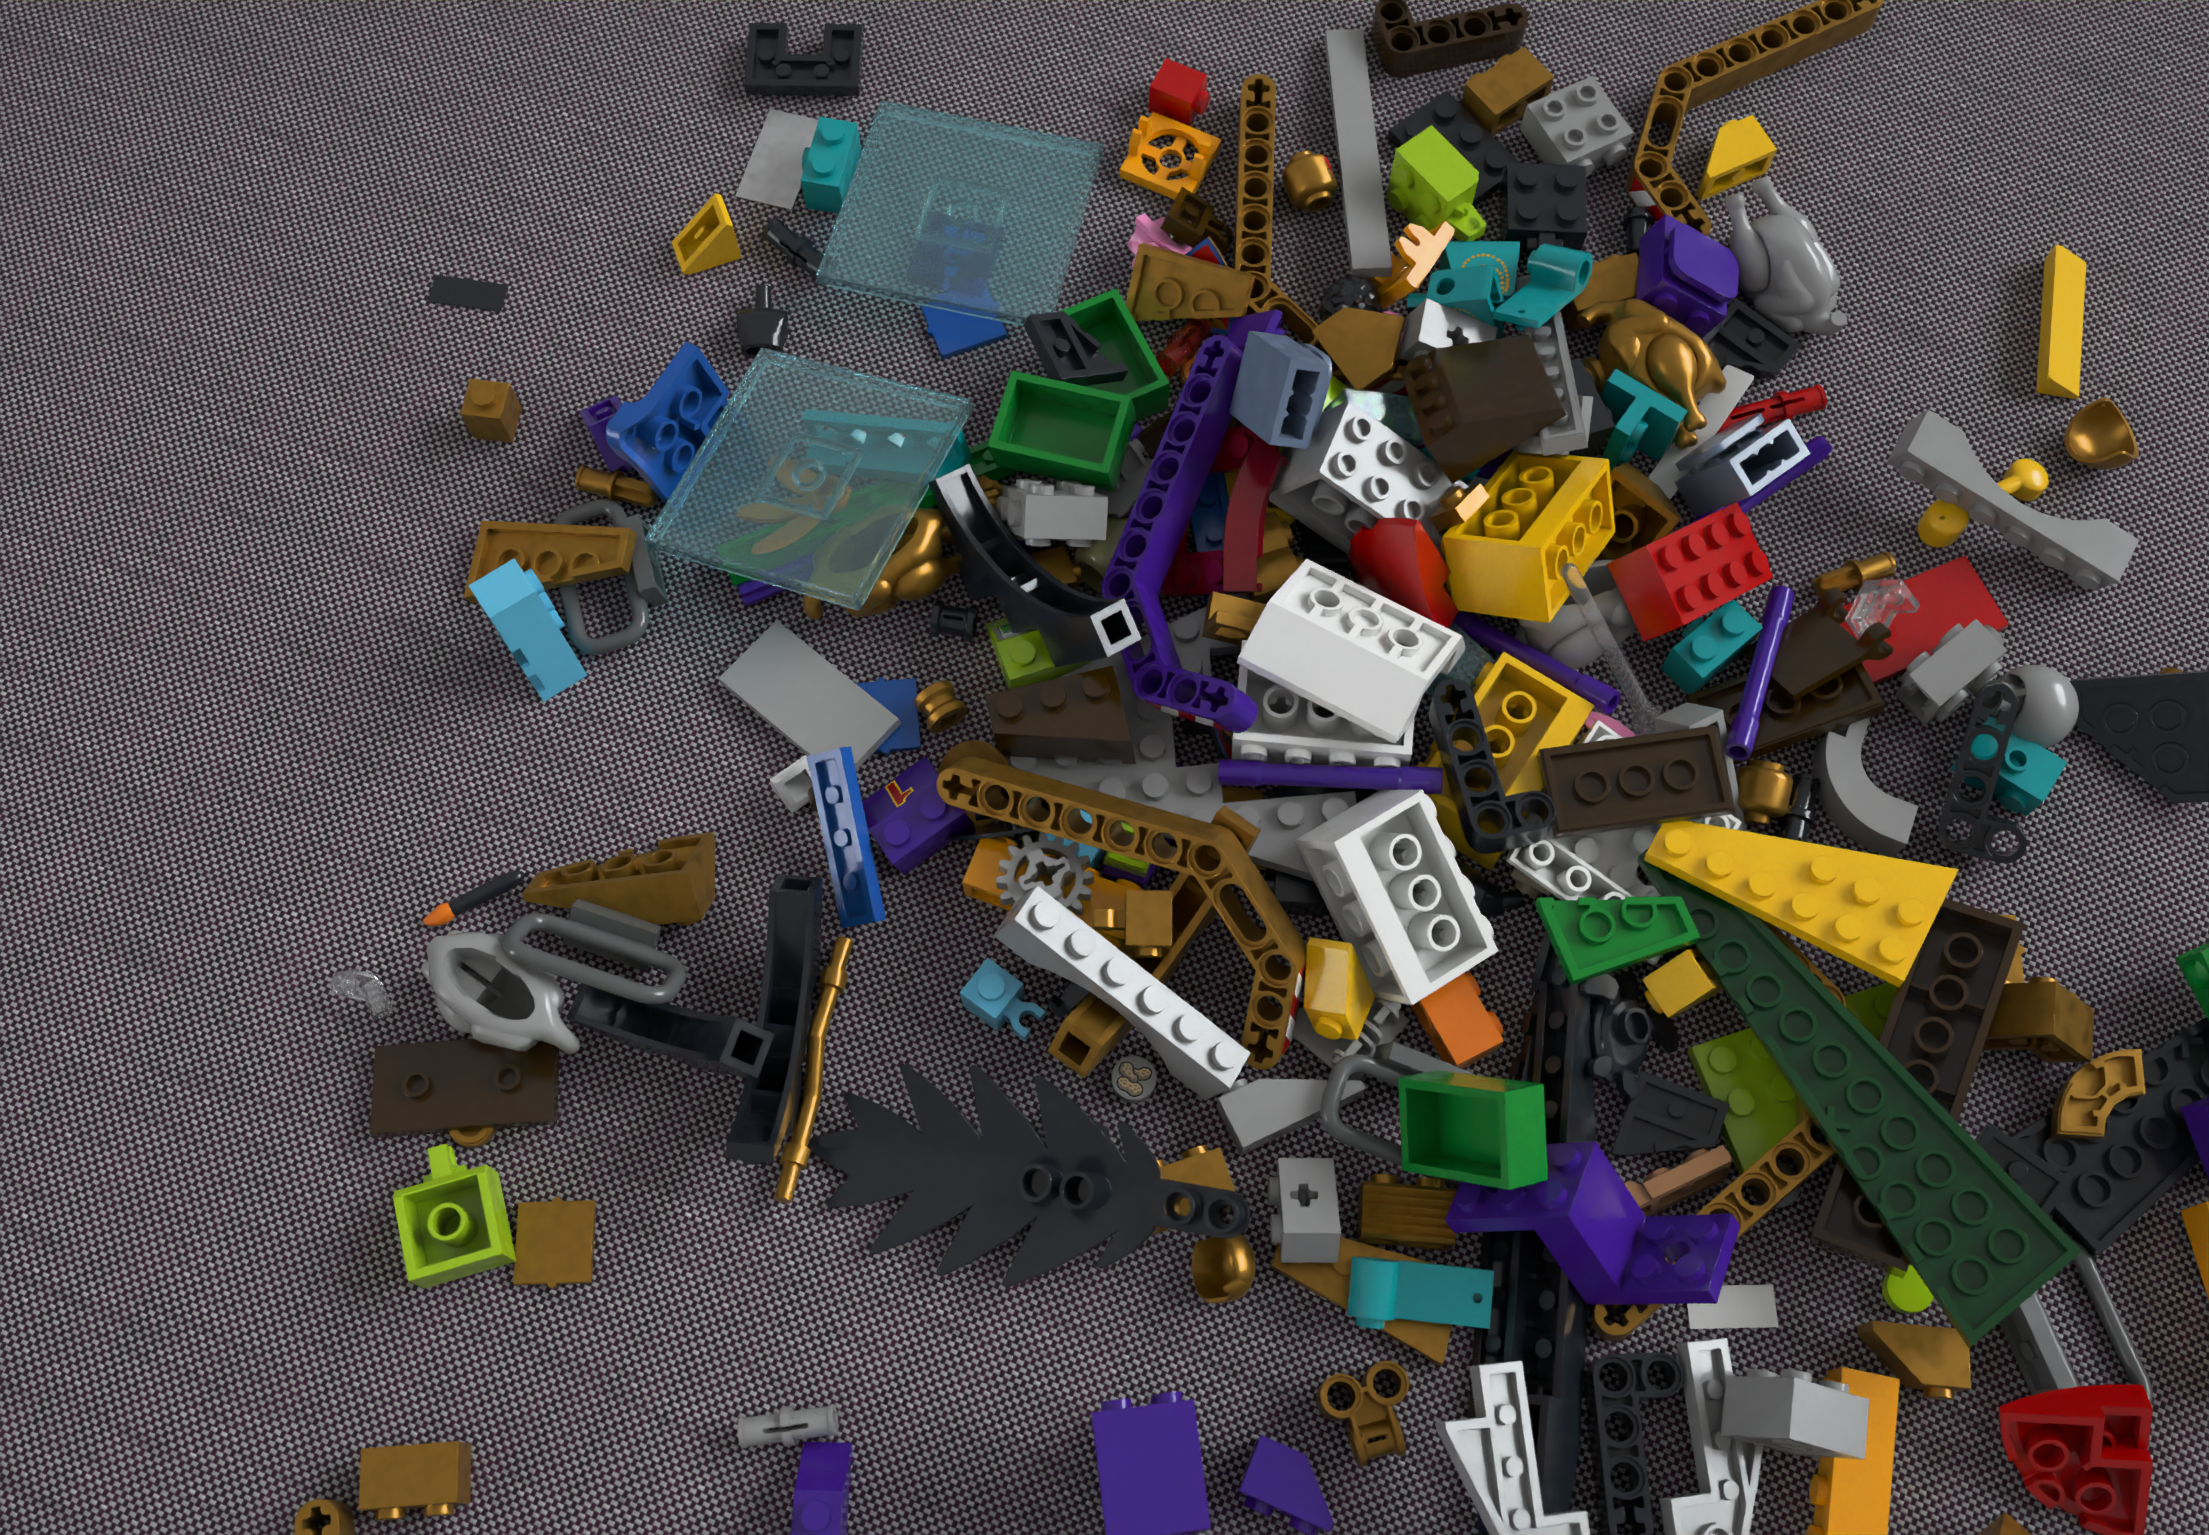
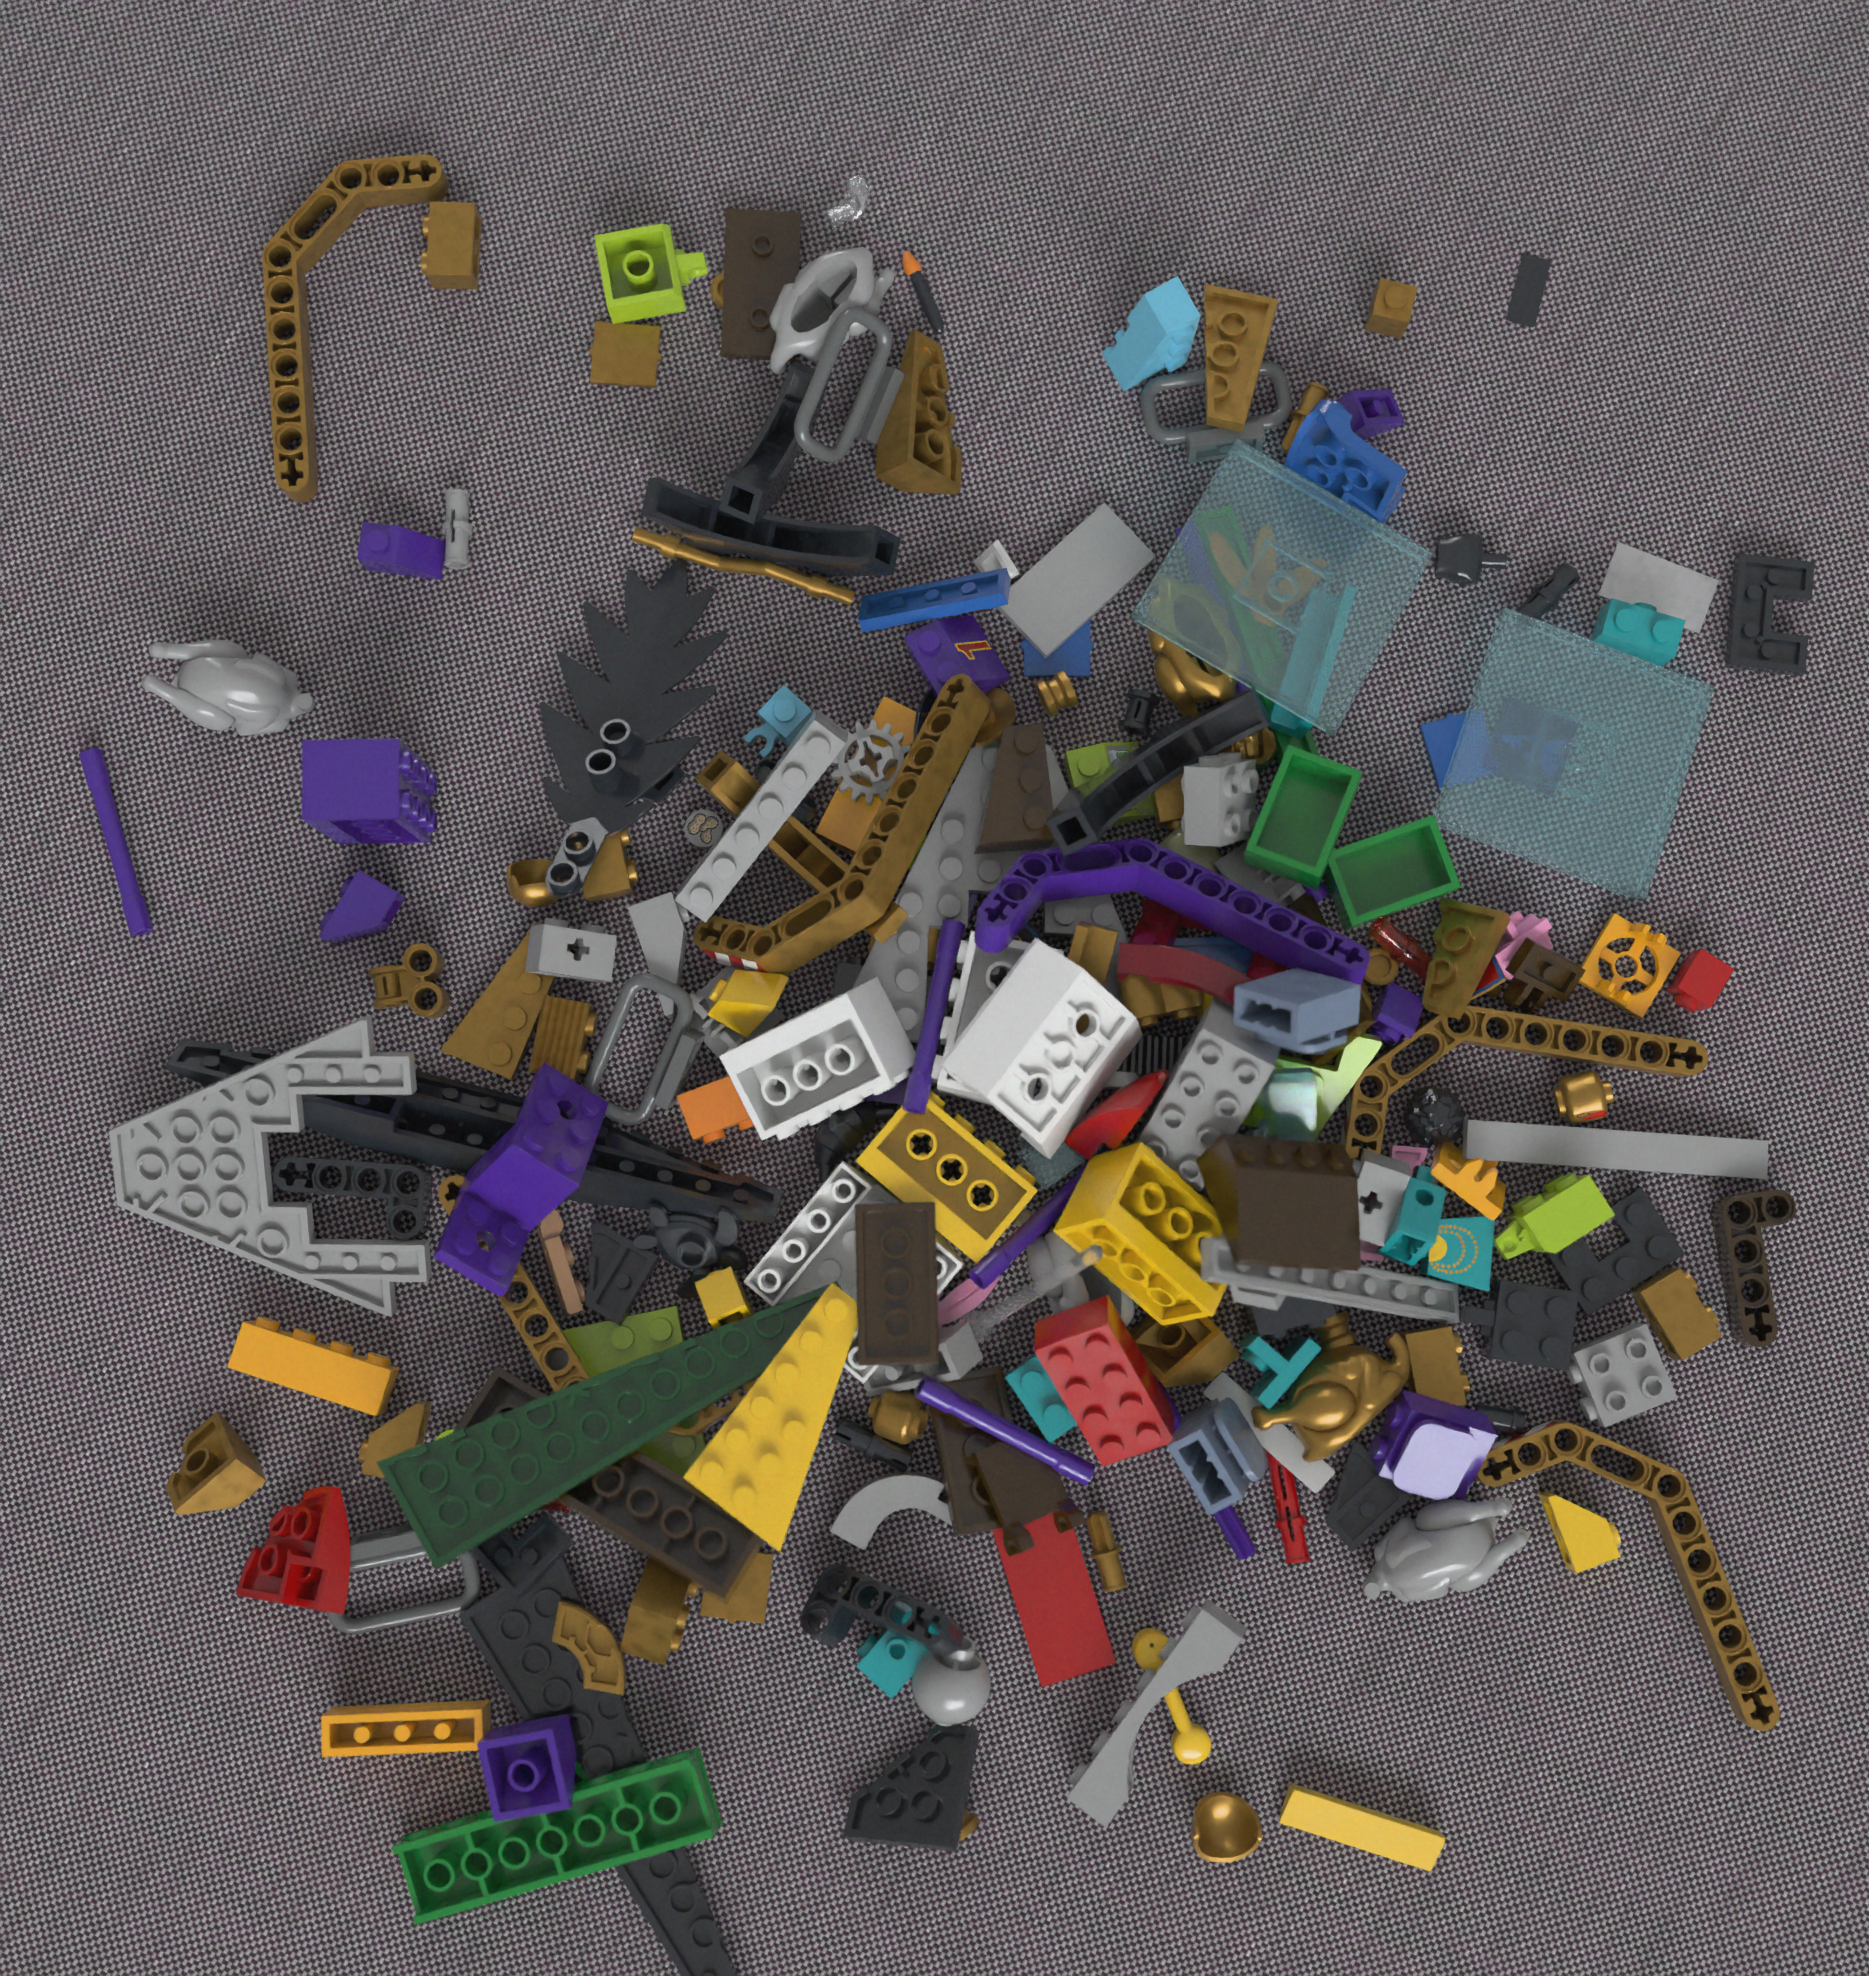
camera: 95 degrees right, 15 degrees up
(707, 239) = (1563, 511): yellow slope -> none
(1070, 352) = (1387, 833): black wing -> none
(1145, 922) = (818, 838): pearl gold brick -> none
(1362, 344) = (1378, 1114): pearl gold slope -> none
(1418, 1292) = (496, 1035): teal door -> none
(1458, 506) = (1171, 1162): pearl gold plate -> none
(1473, 1128) = (604, 1088): green piece -> none
(1480, 766) = (923, 1144): black beam -> none
(1555, 280) = (1431, 1313): teal door -> none
(1613, 934) = (764, 1242): green wing -> none
(1736, 1308) = (458, 1305): white sticker -> none
(1795, 1414) = (353, 1318): light grey brick -> none
(1880, 603) = (1061, 1557): clear bracket -> none
(1960, 663) = (993, 1621): light grey brick -> none

